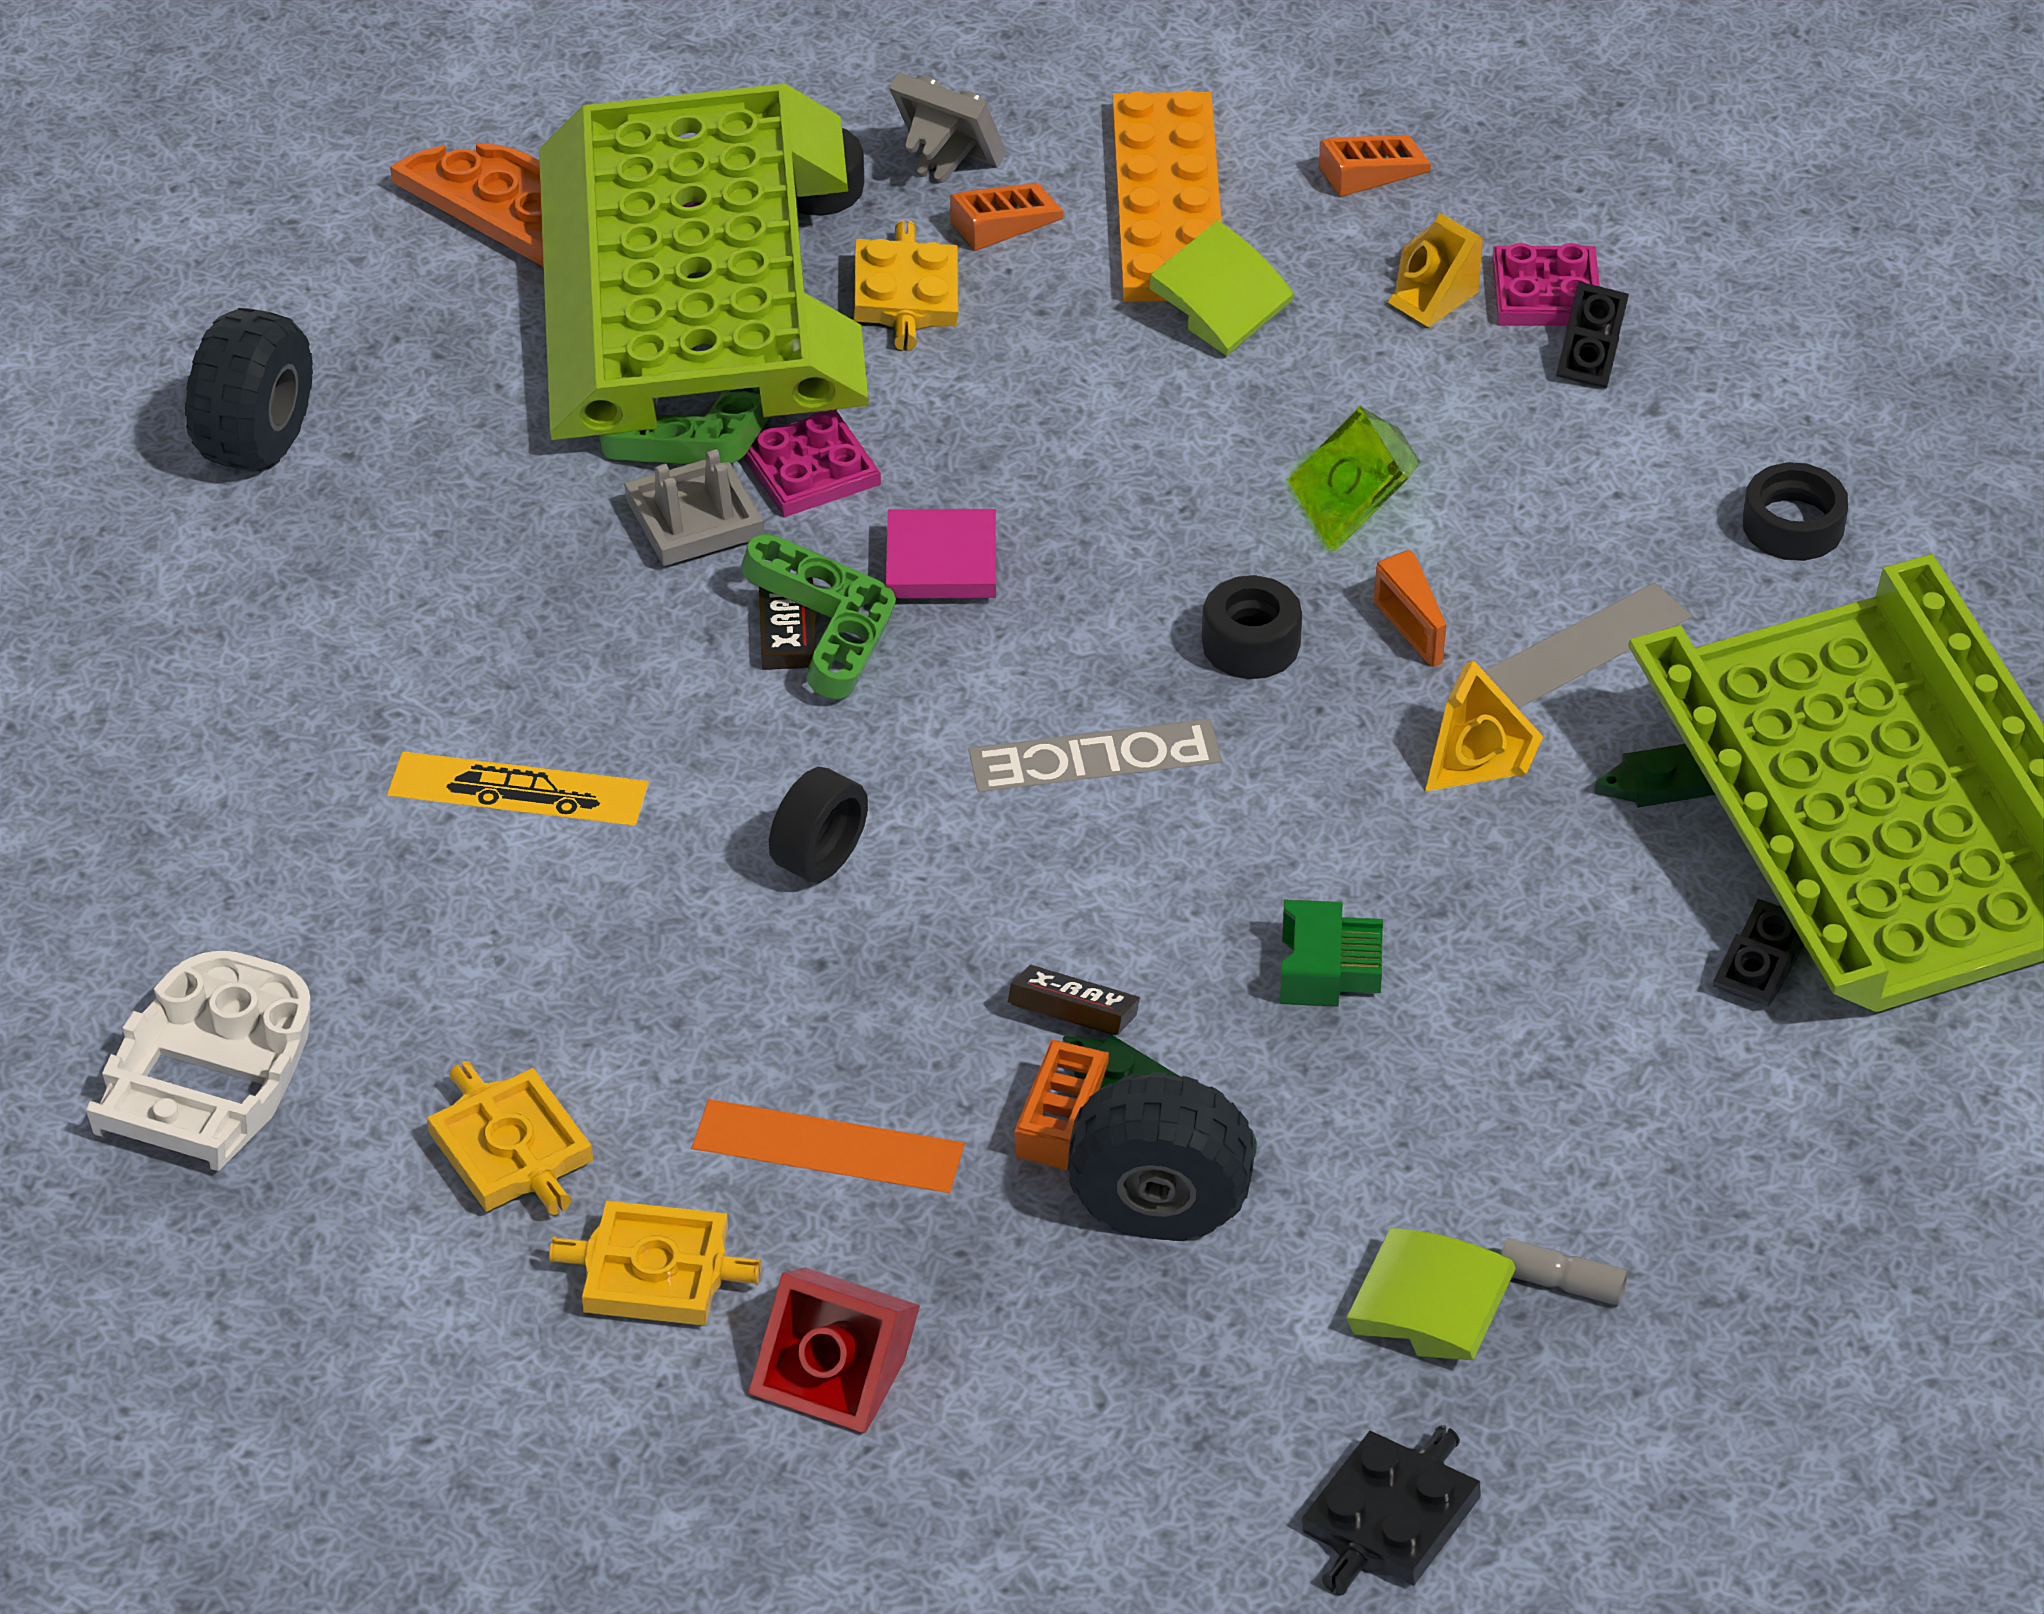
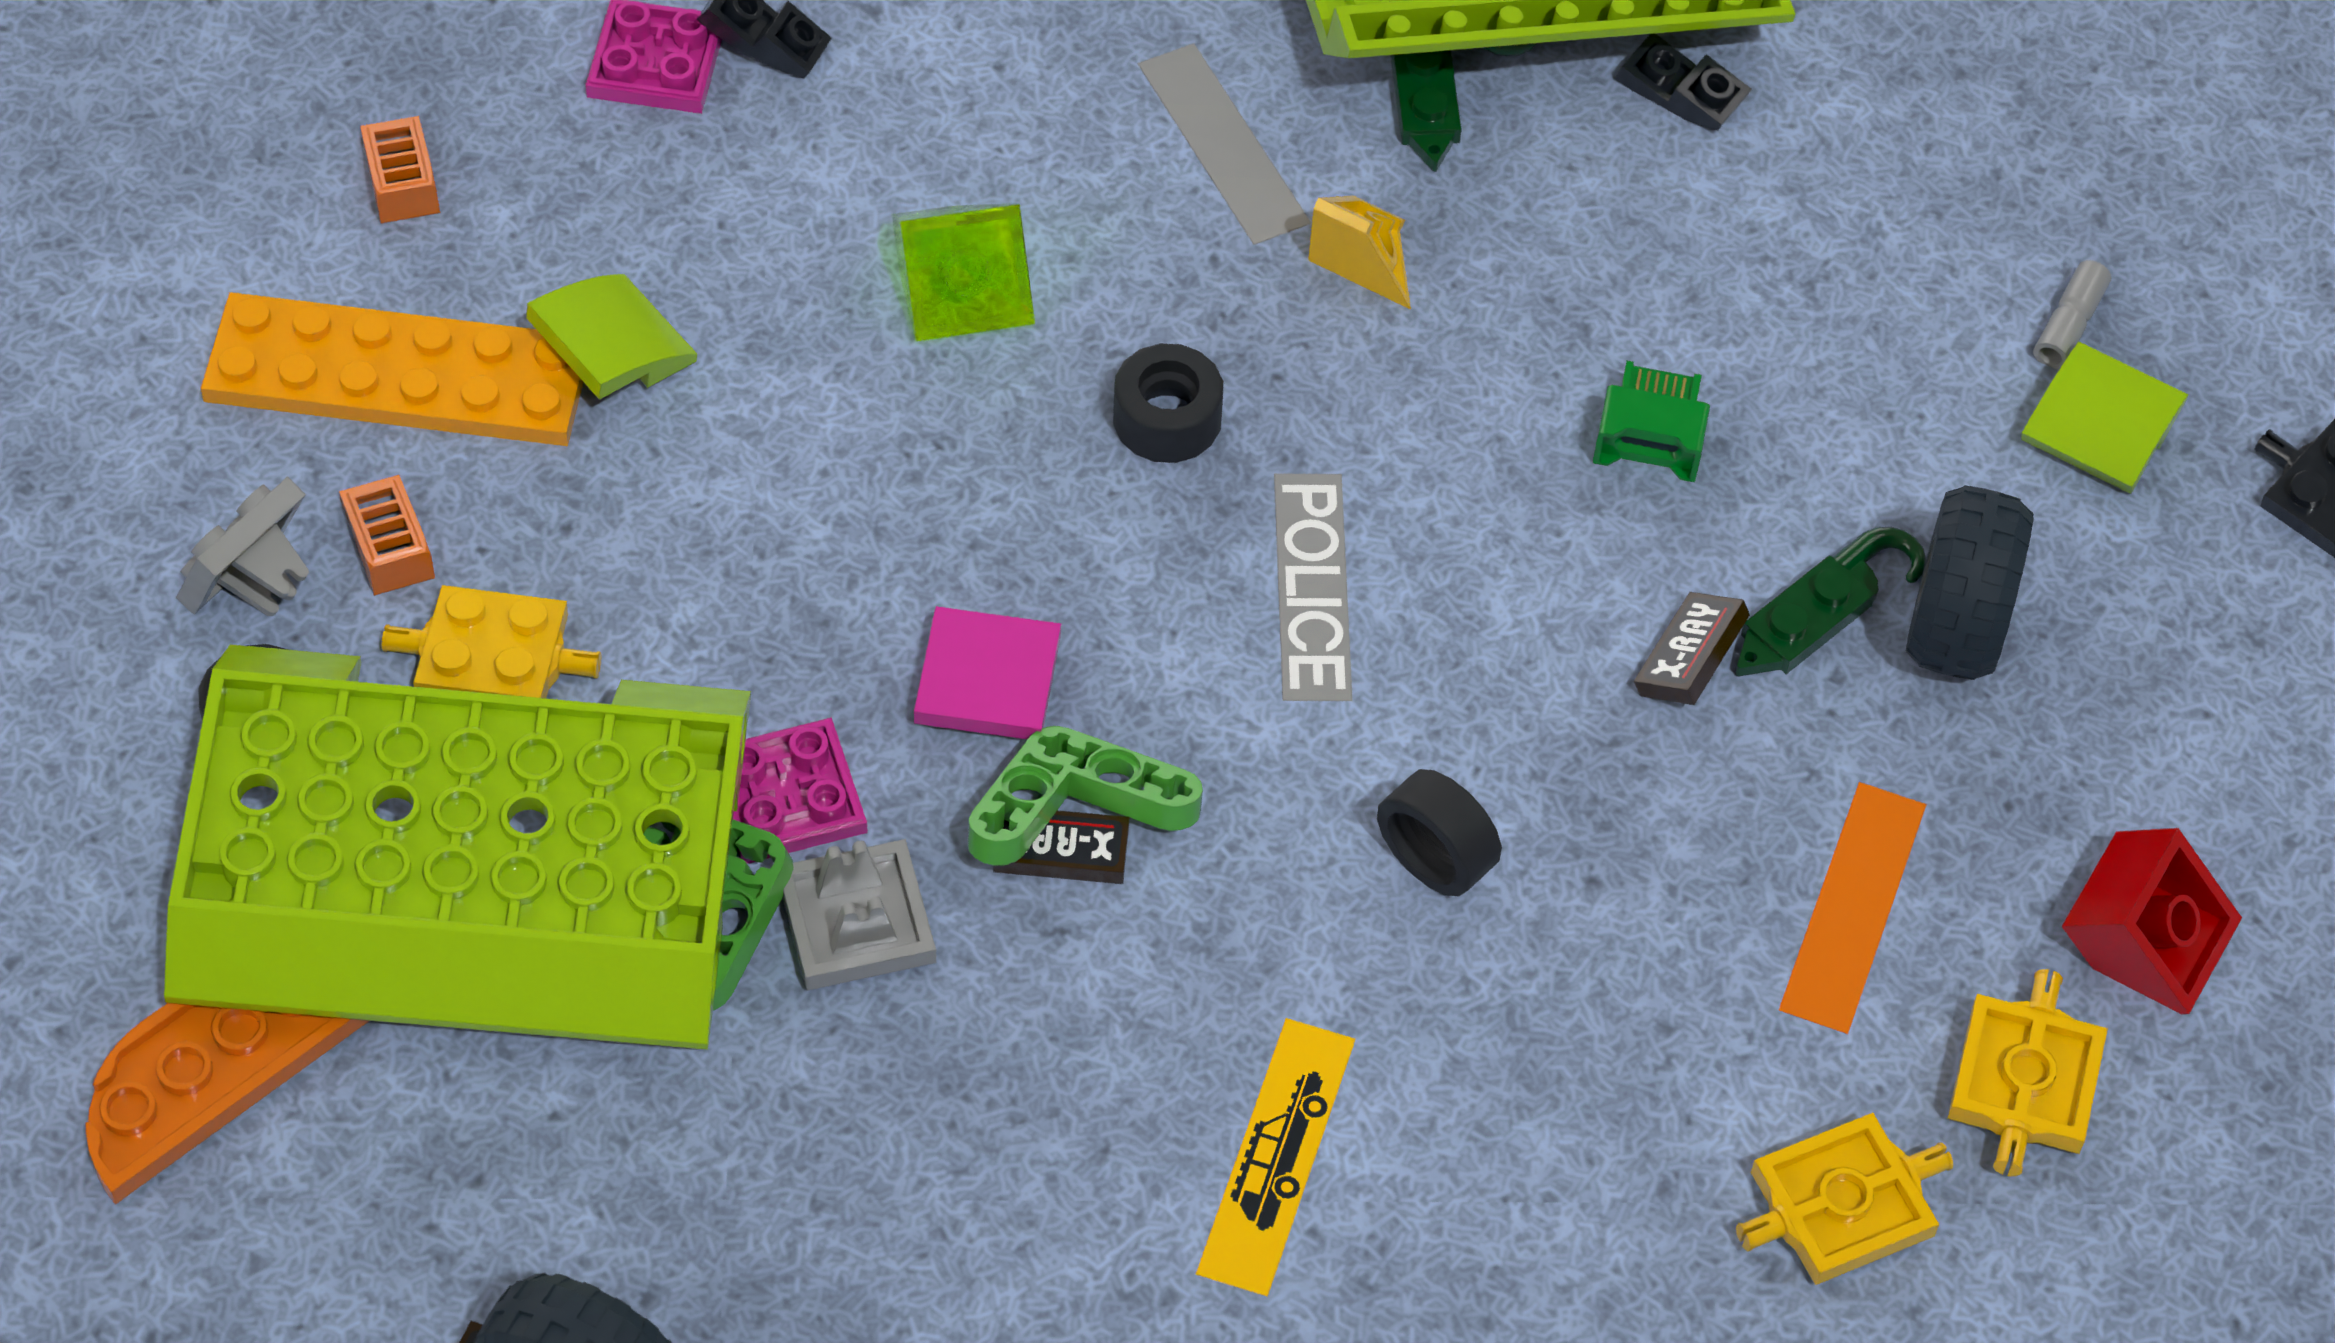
camera: 85 degrees left, 10 degrees up
(1045, 1137) = (1851, 702): orange slope -> none
(1410, 605) = (1163, 257): orange slope -> none
(1438, 271) = (620, 141): yellow slope -> none

